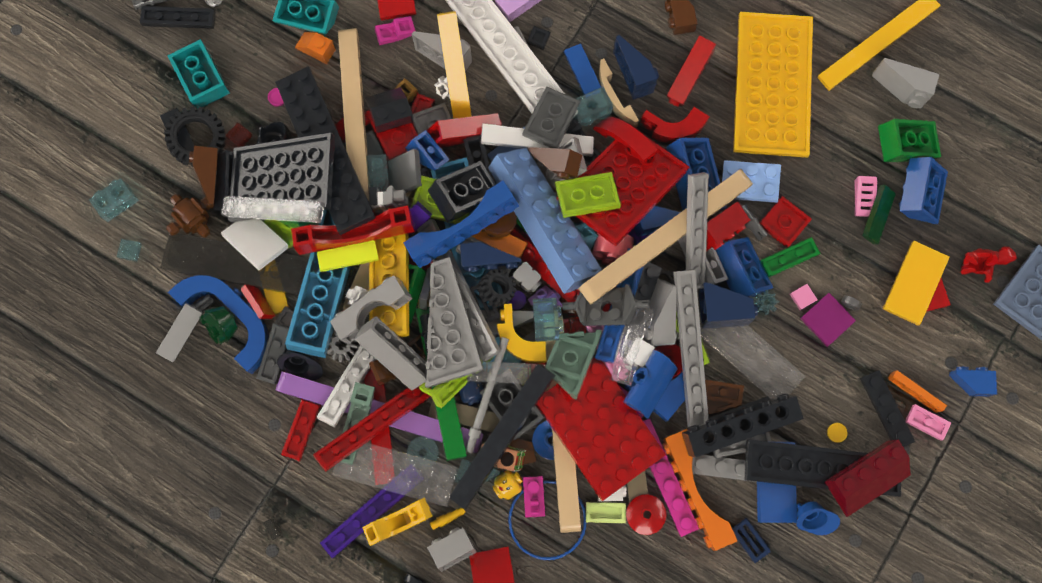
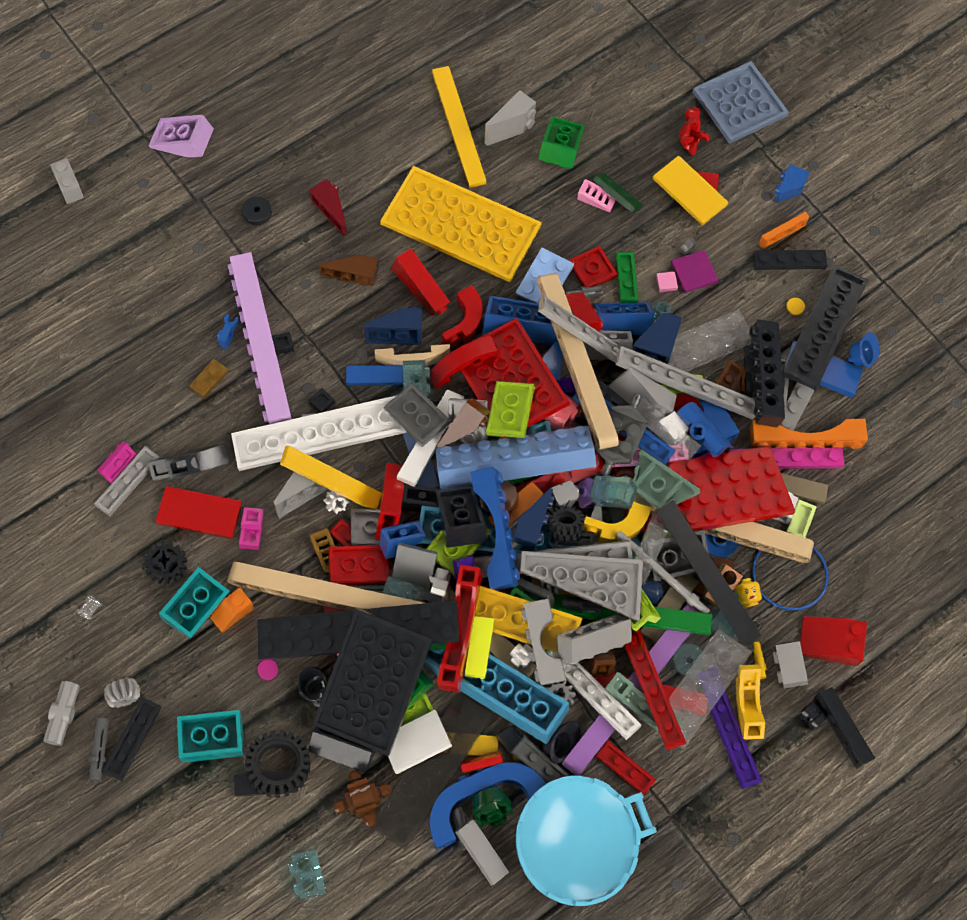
camera: 75 degrees left, 10 degrees down
(129, 250) = (368, 879): clear light blue tile -> none
(205, 168) = (325, 759): reddish brown slope -> none
(216, 411) = (580, 839): none -> medium azure dish
(239, 135) = (293, 721): clear red tile -> none
(273, 209) = (405, 698): clear tile -> none
(389, 109) = (339, 557): black slope -> none
(534, 496) = (766, 575): dark pink plate -> none
(635, 514) = (809, 491): red dish -> none
(760, 554) = (850, 415): dark blue tile -> none
(870, 476) = (844, 293): dark red slope -> none
(923, 190) = (610, 150): blue slope -> none
(928, 422) = (812, 233): bright pink plate -> none

